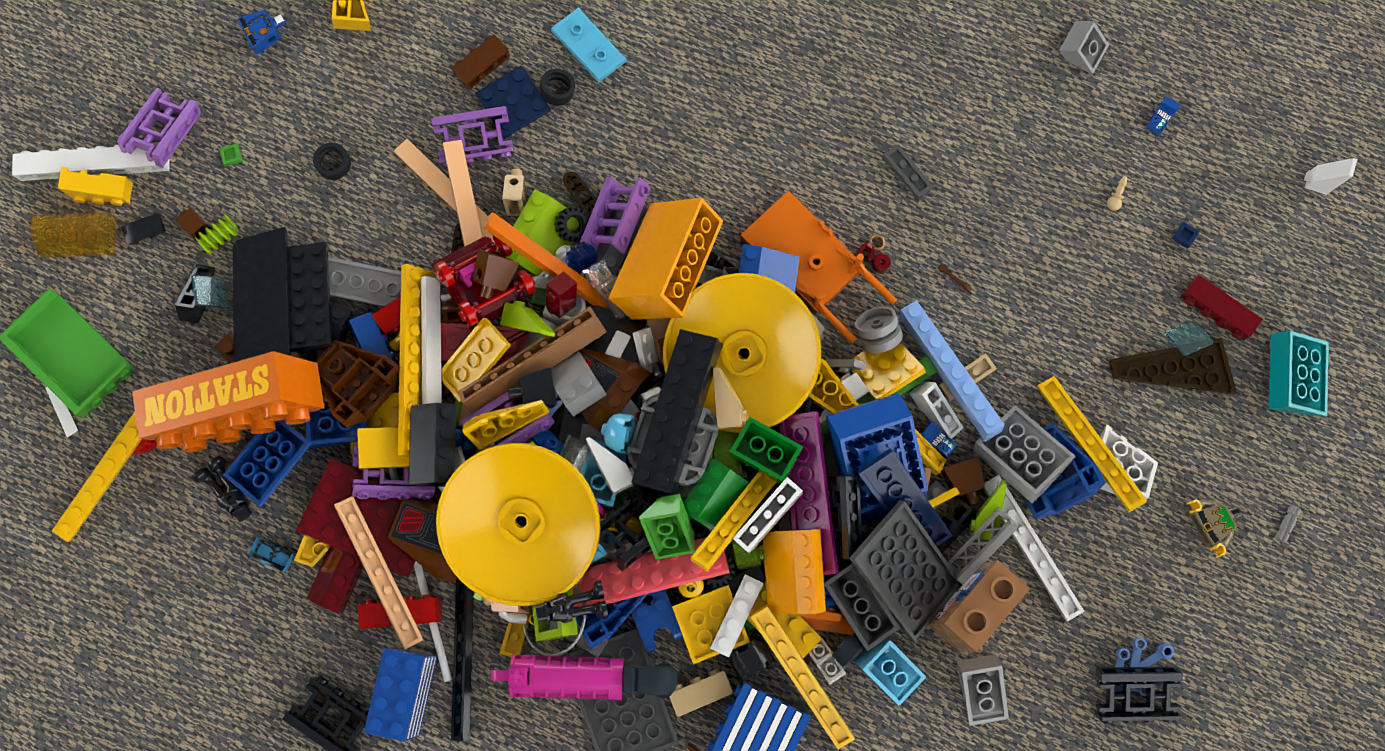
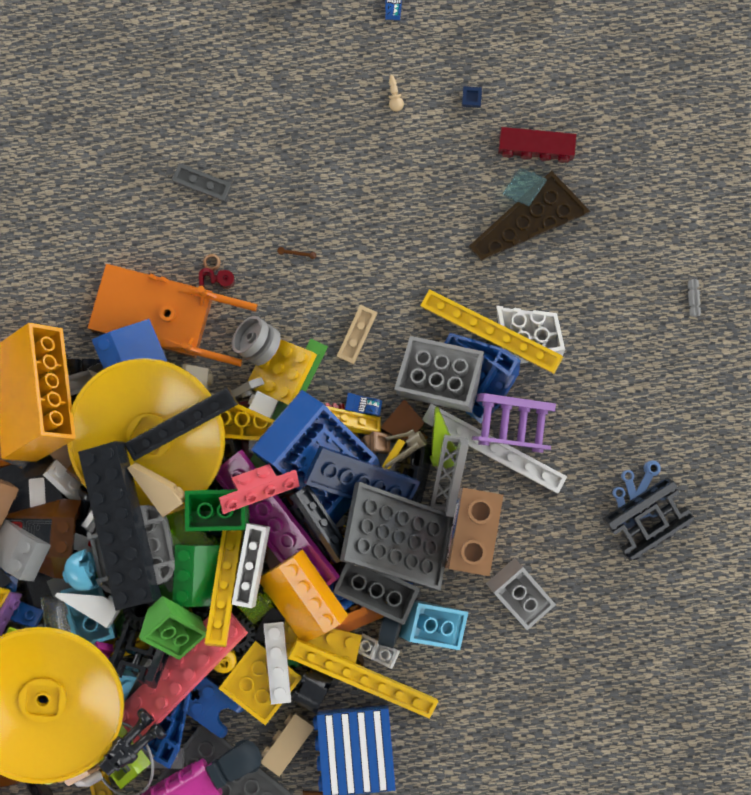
camera: 30 degrees left, 5 degrees up
(781, 357) = (181, 423): none -> black tile
(815, 450) = (257, 486): none -> coral bracket
(935, 406) = (346, 378): white slope -> none
(936, 481) = (379, 443): none -> medium nougat tile
(951, 371) = (337, 339): light blue brick -> none
(967, 498) = (414, 442): none -> dark tan plant
(1082, 526) = (506, 405): none -> medium lavender fence
(1214, 523) = (632, 335): torso -> none
(1298, 374) = (633, 163): teal slope -> none

